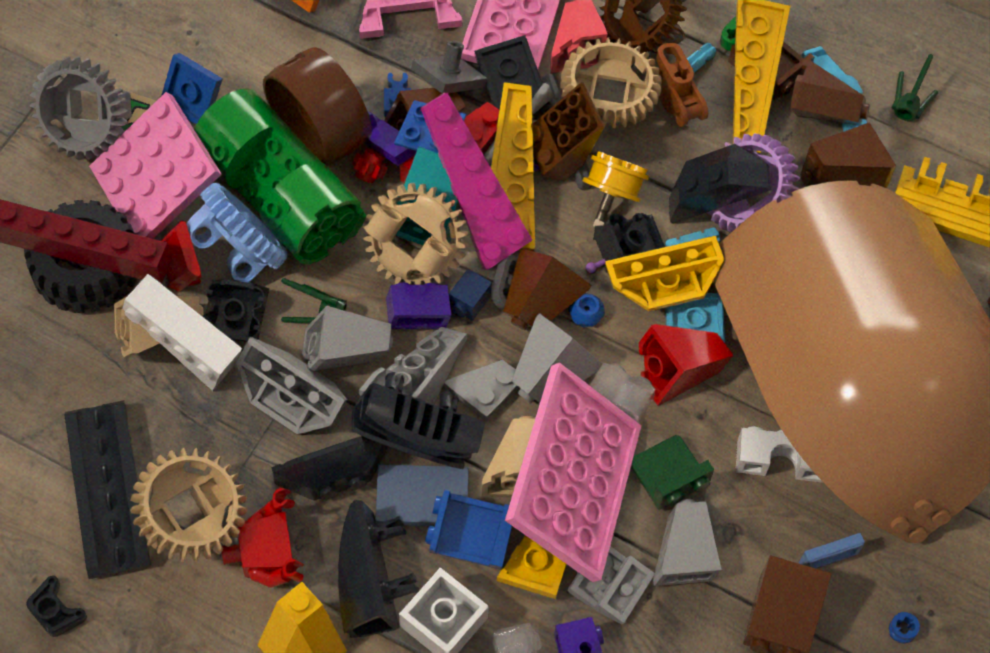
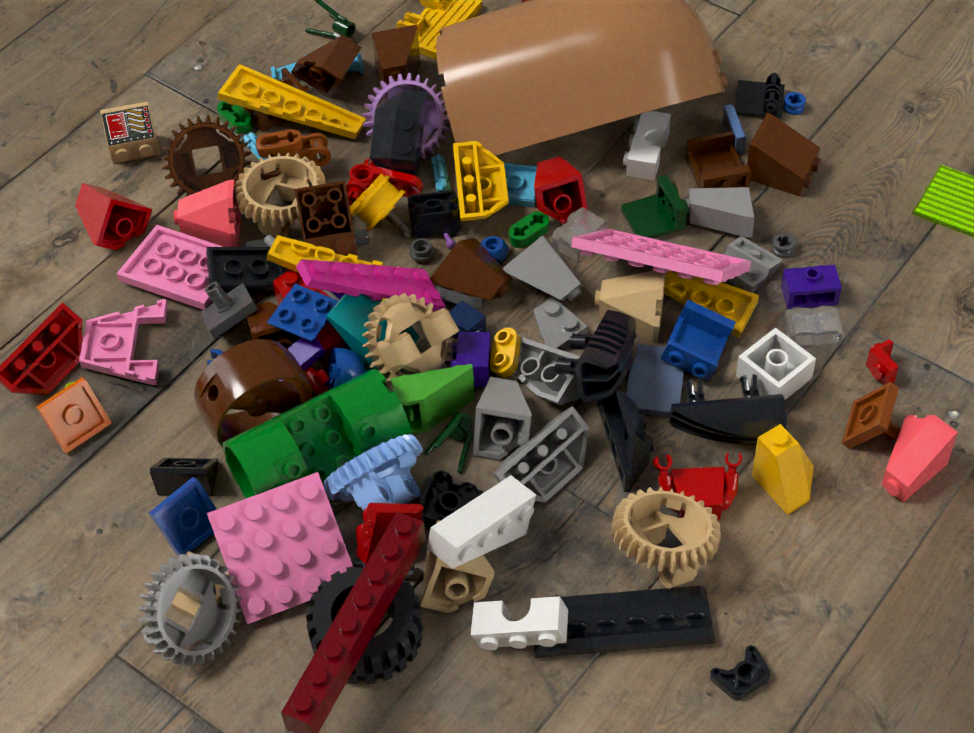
camera: 75 degrees left, 10 degrees down
(84, 406) = (541, 626): none -> white arch
(248, 70) = (172, 473): none -> black slope
(354, 269) = (434, 395): none -> bright green slope
(375, 186) = (343, 366): none -> blue cylinder
(432, 336) = (507, 348): none -> yellow plate
(576, 233) = (421, 250): none -> dark grey plate
(622, 344) = (528, 229): none -> green beam
(644, 615) = (783, 238): none -> dark grey bush
(661, 175) = (364, 175): none -> red piece
(767, 532) = (716, 162): none -> reddish brown panel
(902, 584) = (760, 97): none -> black hinge

